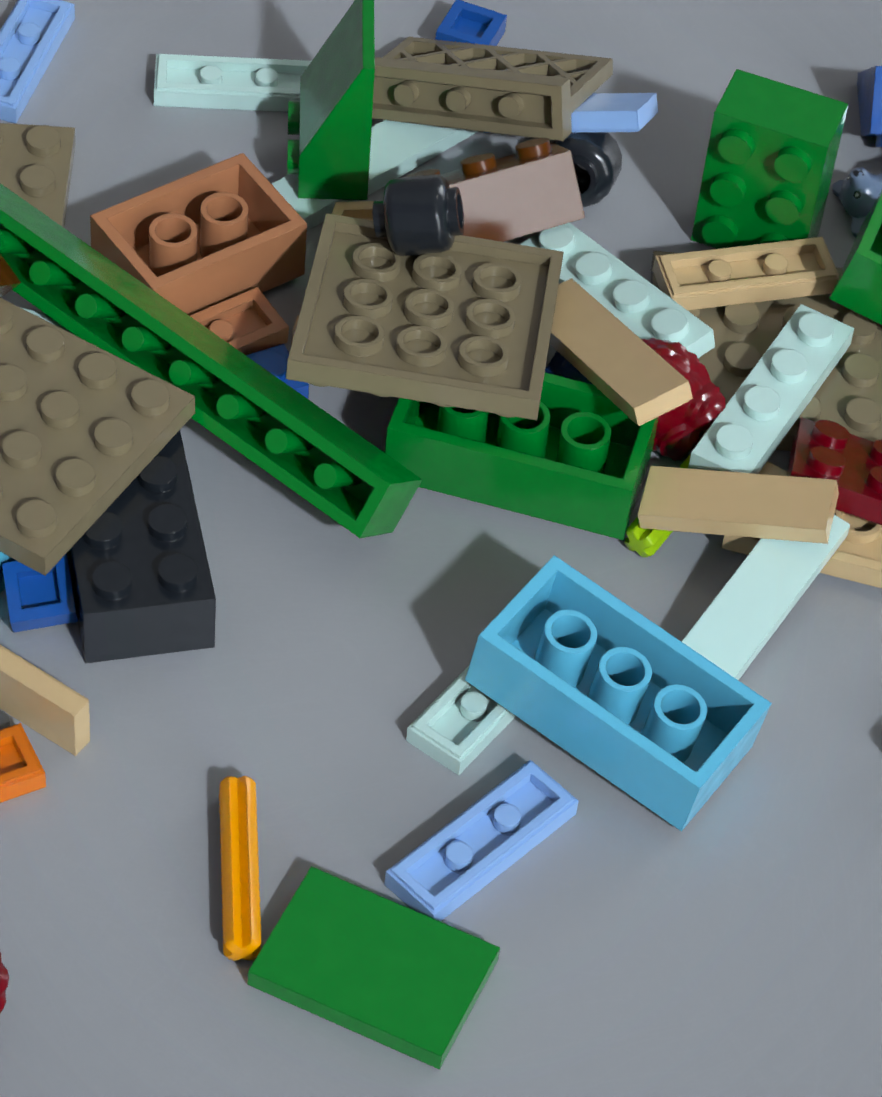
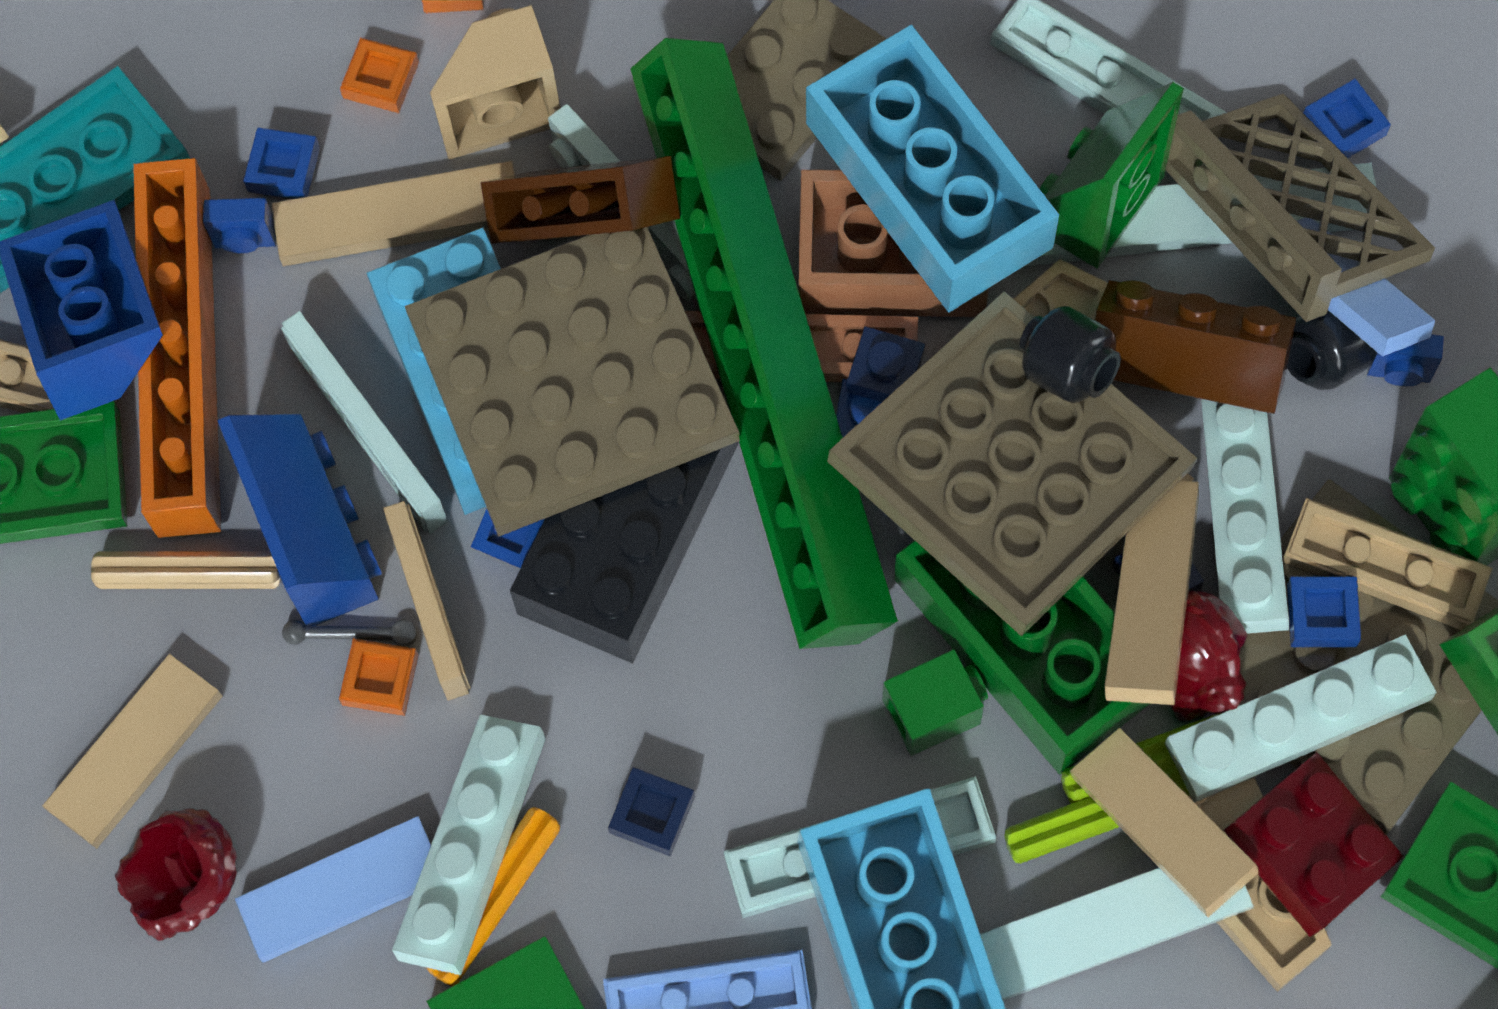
camera: 45 degrees right, 20 degrees up
(97, 939) = (335, 890): none -> light blue tile
(194, 831) = (469, 845): none -> light aqua plate
(205, 149) = (930, 168): none -> medium azure brick
(261, 325) = (883, 364): none -> dark blue plate
(325, 730) = (651, 811): none -> dark blue plate
(488, 535) = (934, 701): none -> green brick
(645, 151) = (1411, 364): none -> blue plate
(659, 569) = (1064, 826): none -> lime axle
(734, 317) = (1323, 612): none -> blue plate

